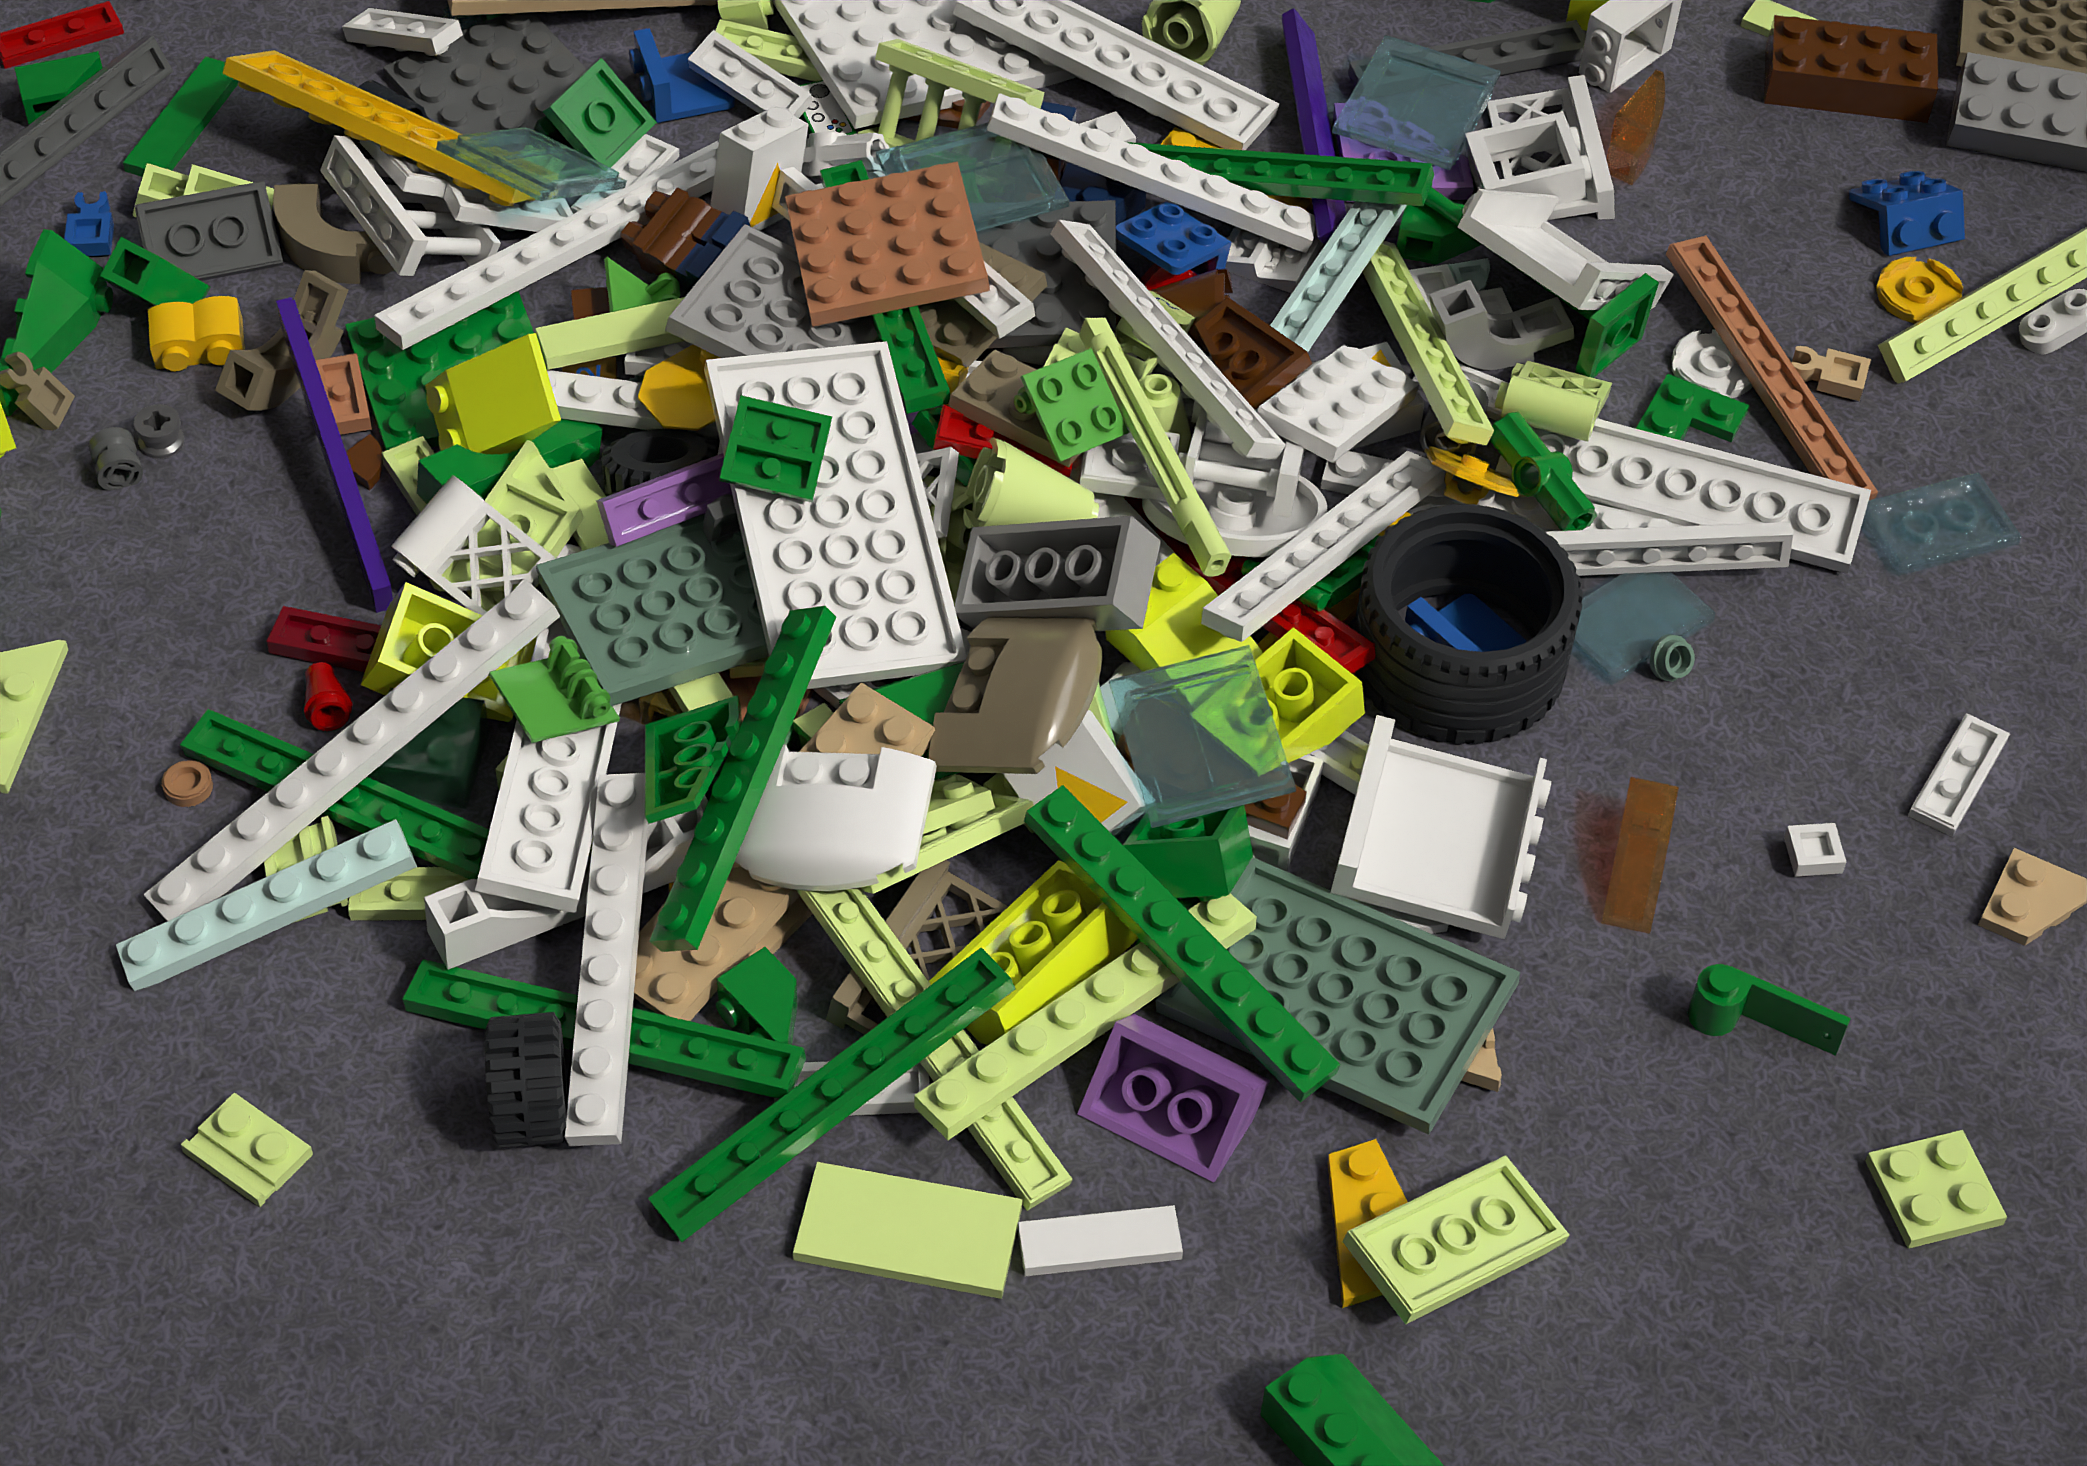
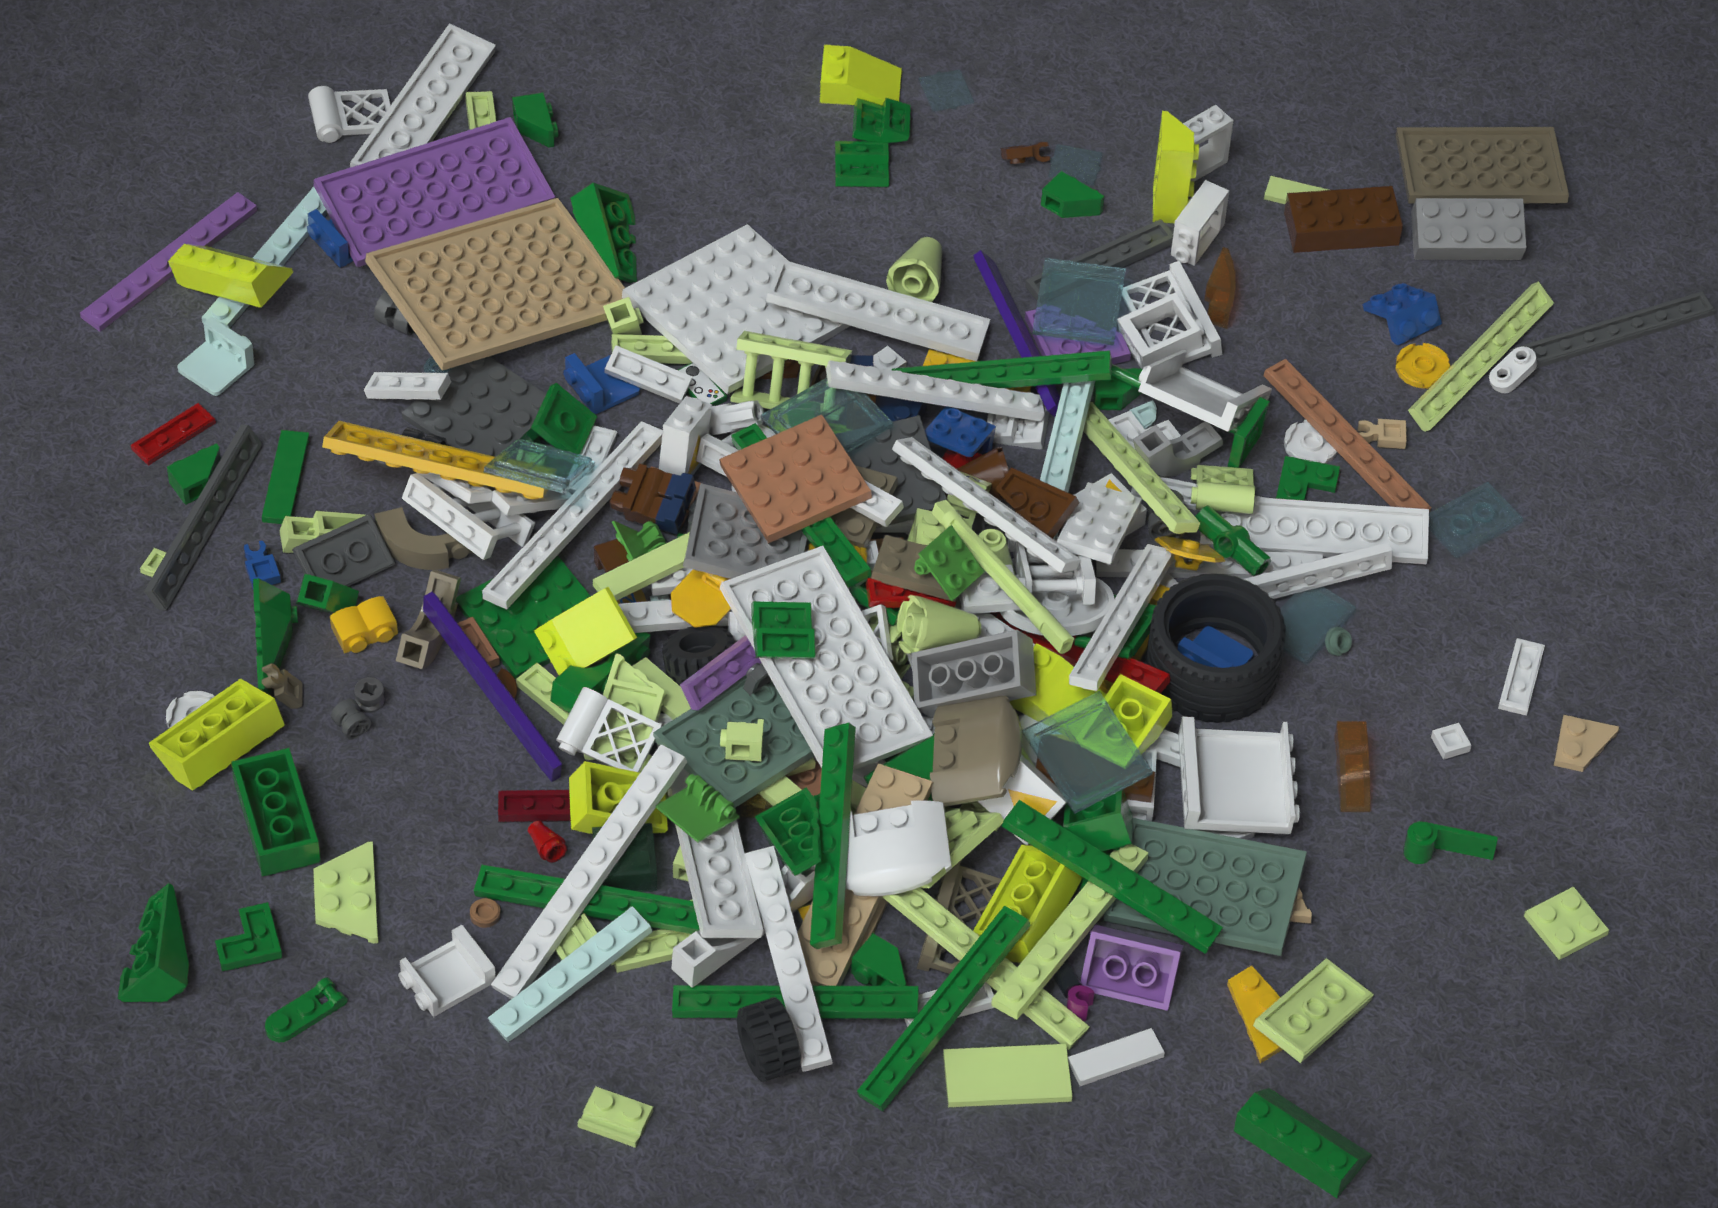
camera: 15 degrees left, 0 degrees up
(82, 864) = (448, 973): none -> white panel
(662, 603) = (743, 740): none -> yellowish green brick
(1065, 1115) = (1078, 996): none -> piece

